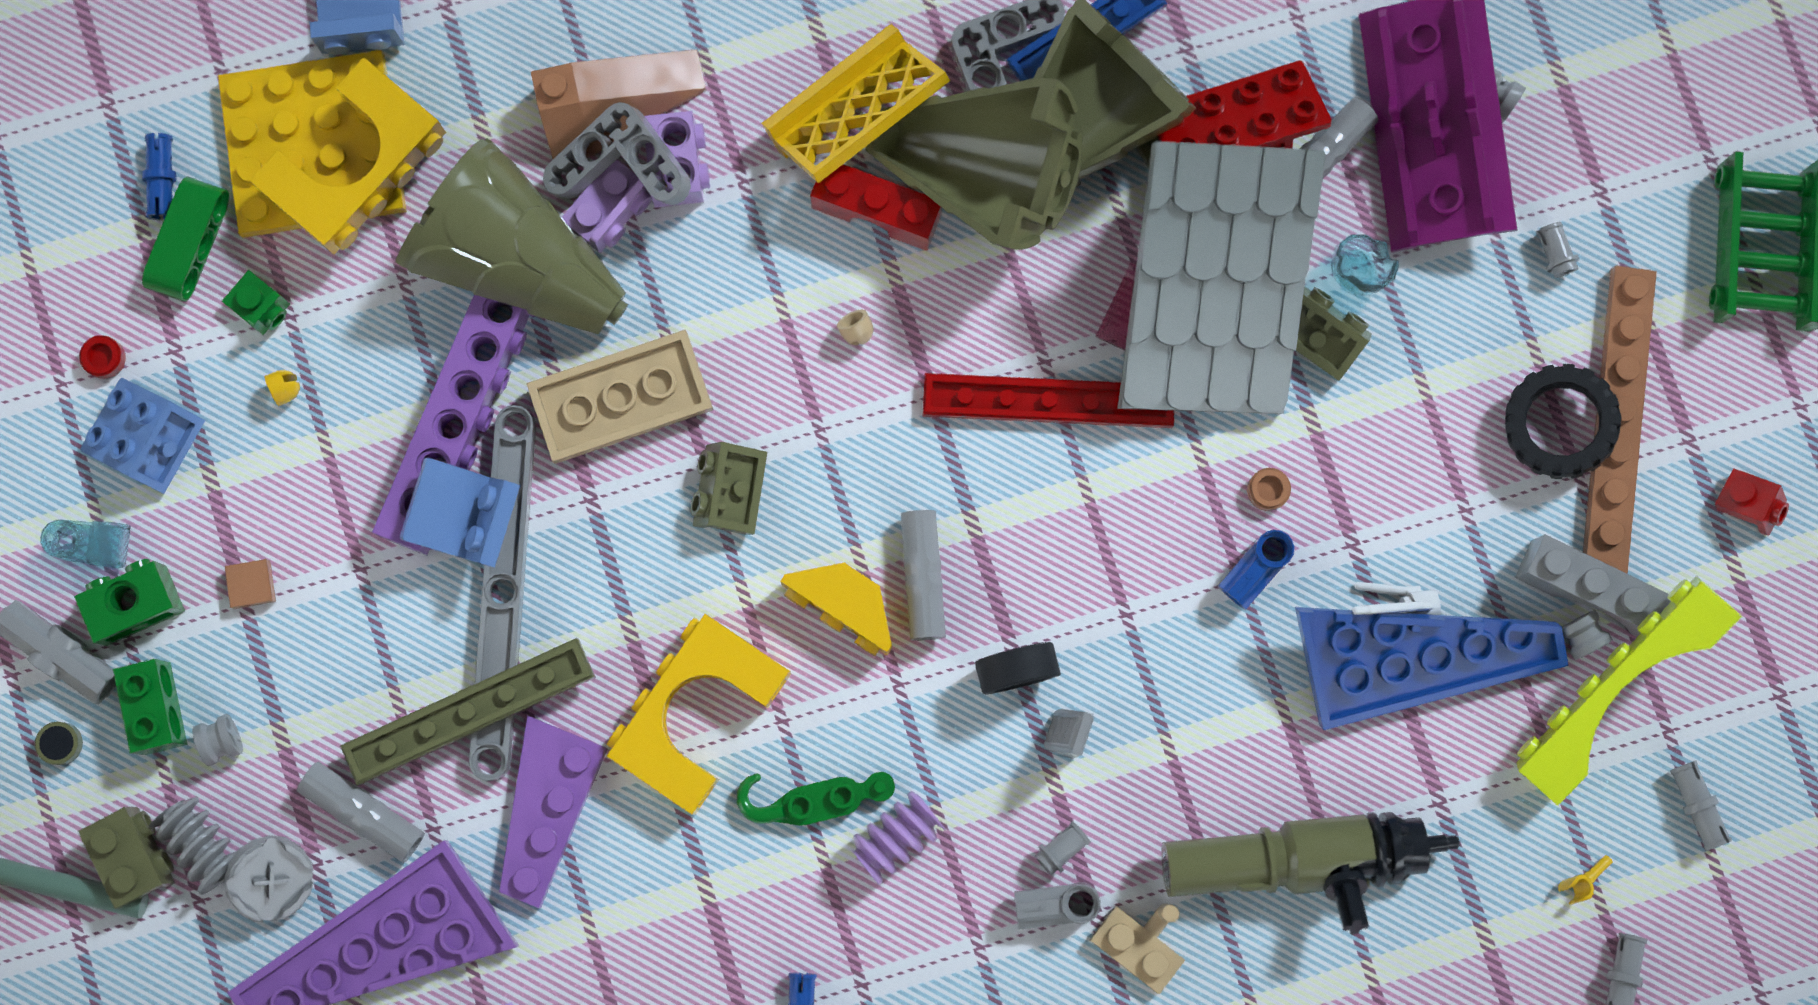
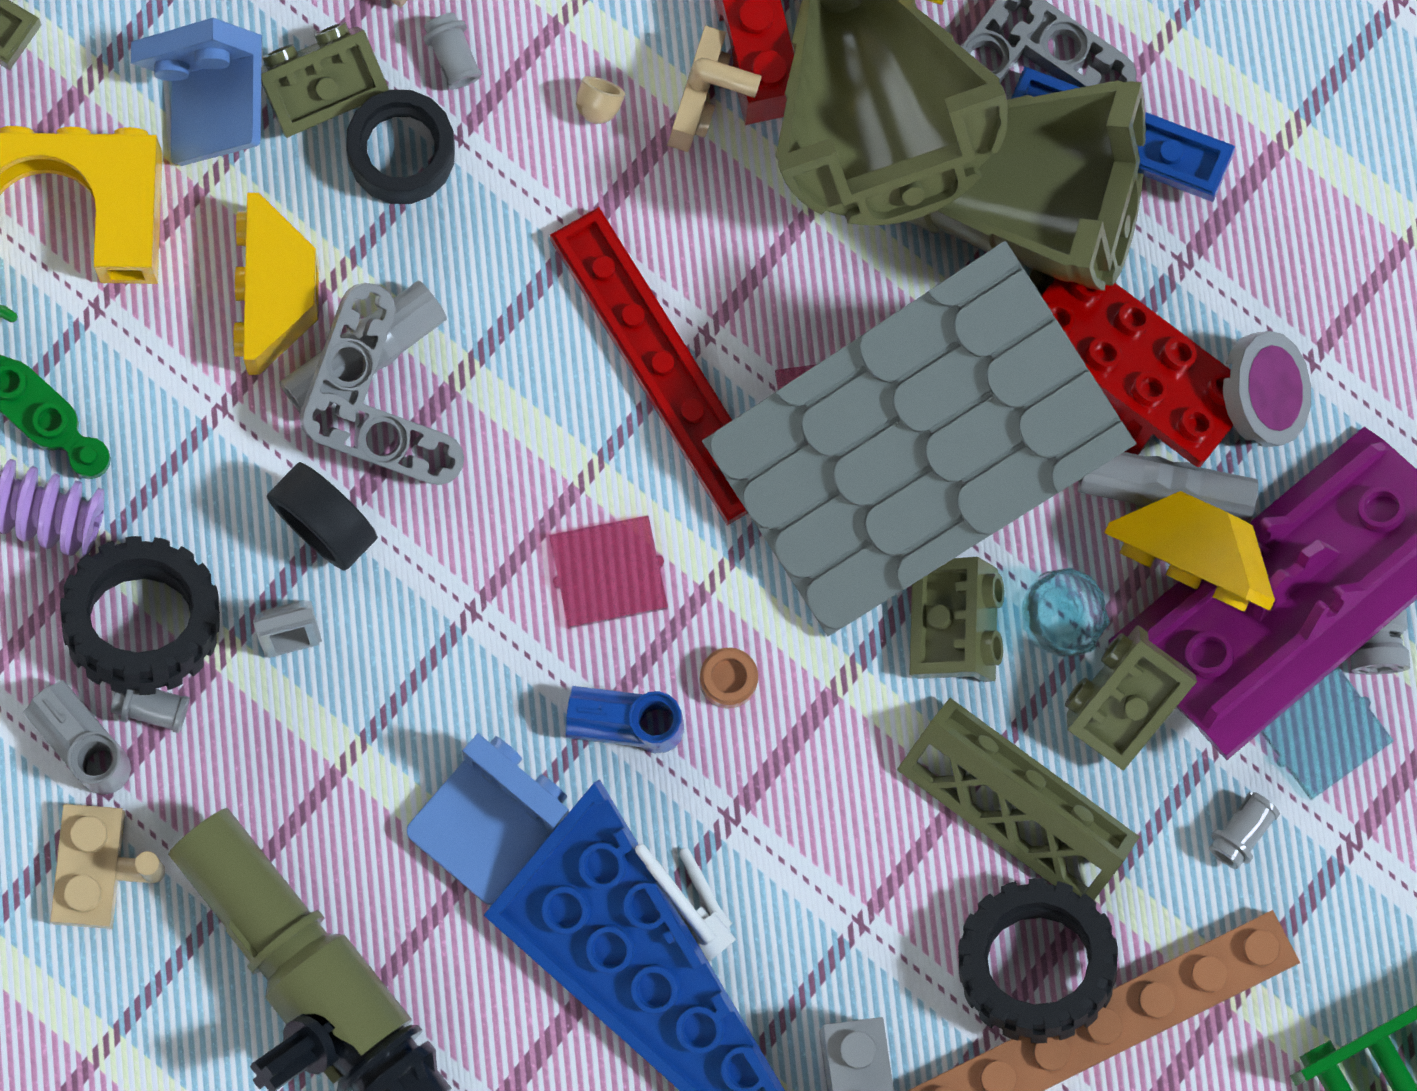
camera: 50 degrees right, 5 degrees down
(697, 561) = (213, 86): none -> medium blue bracket
(764, 396) = (452, 50): none -> light grey pin
(802, 436) = (400, 104): none -> black tyre
(886, 257) = (708, 68): none -> tan plate
(953, 601) = (351, 395): none -> light grey beam
(985, 779) = (132, 562): none -> black tyre
(1156, 518) = (608, 572): none -> clear pink piece
(1267, 689) = (488, 818): none -> medium blue bracket
(1307, 52) = (1267, 389): none -> tile
(1382, 158) = (1199, 546): none -> yellow slope
(1440, 262) = (1127, 697): none -> olive bracket
(1458, 360) = (1027, 786): none -> olive fence
(1534, 163) = (1326, 734): none -> clear light blue piece

